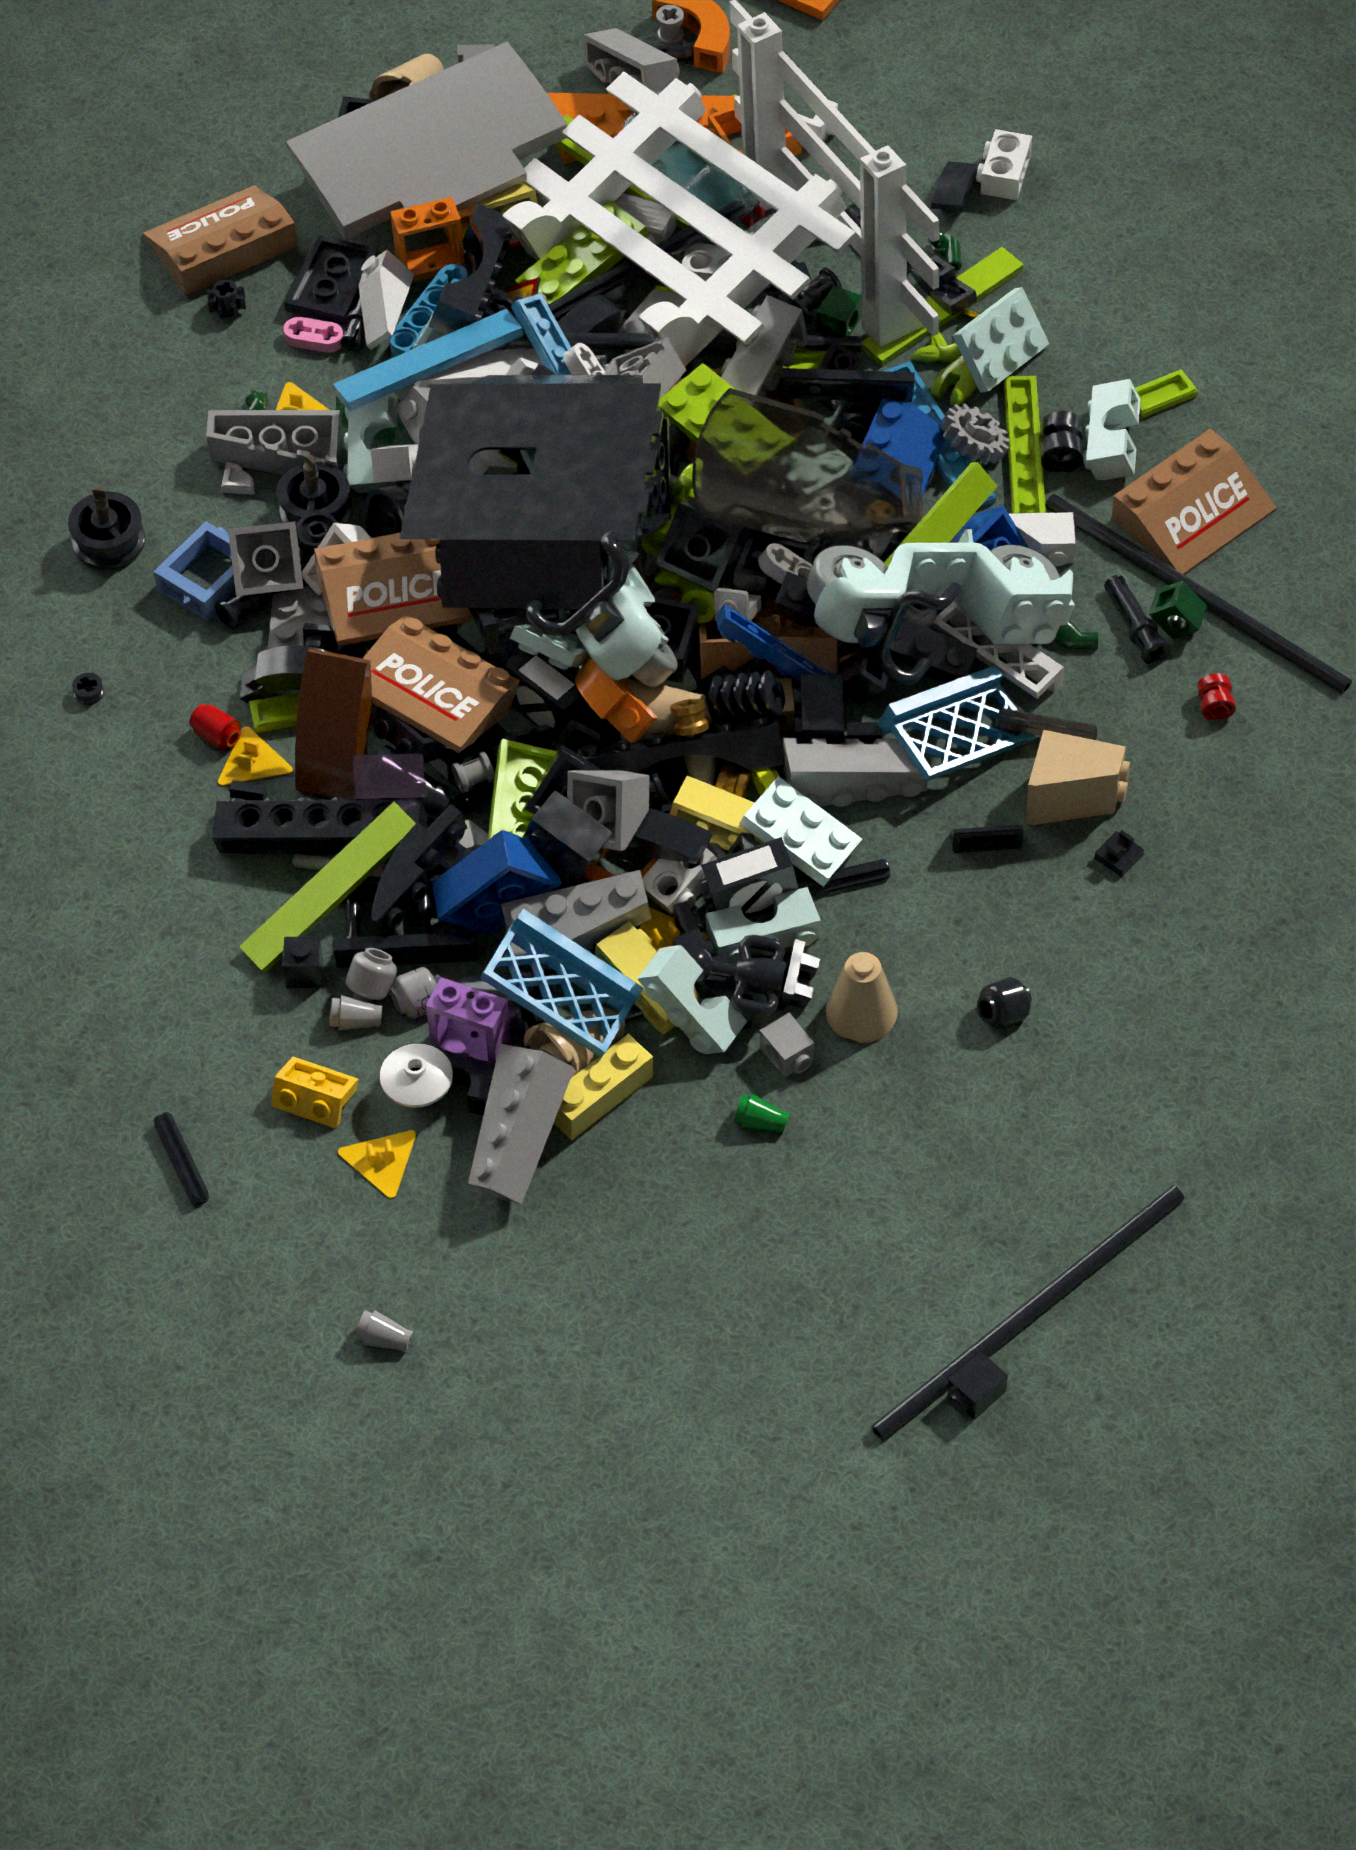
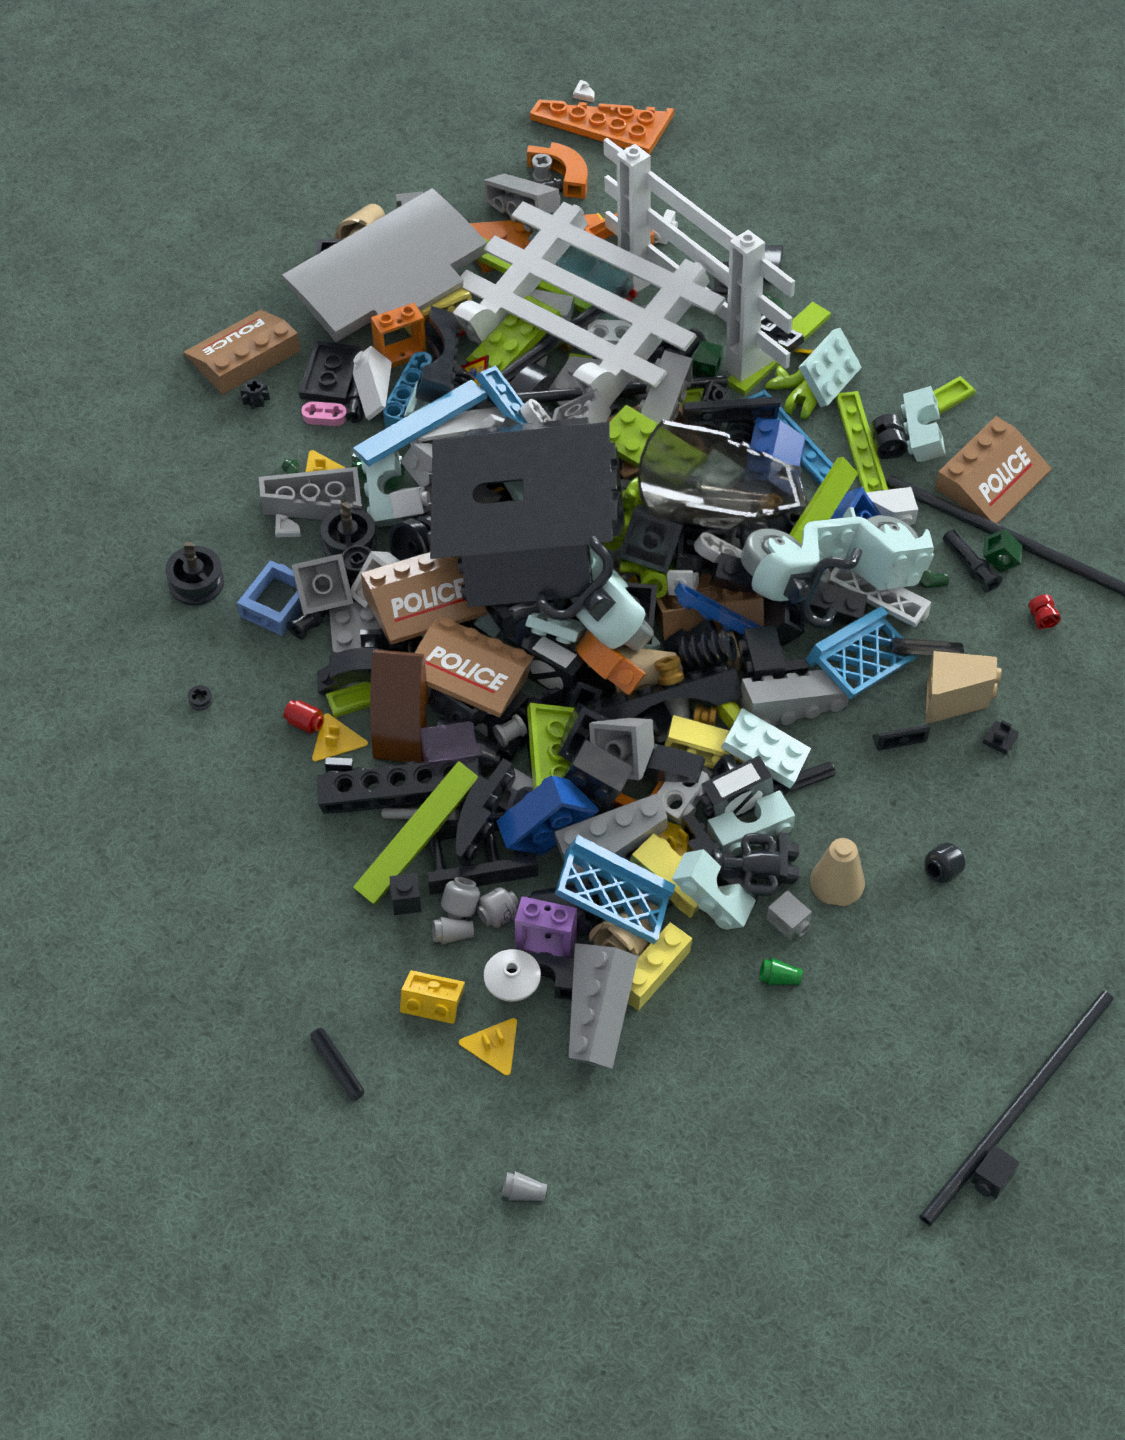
camera: 10 degrees left, 0 degrees up
(975, 434) = (825, 437): light grey gear -> none
(1004, 164) = (802, 243): white brick -> none

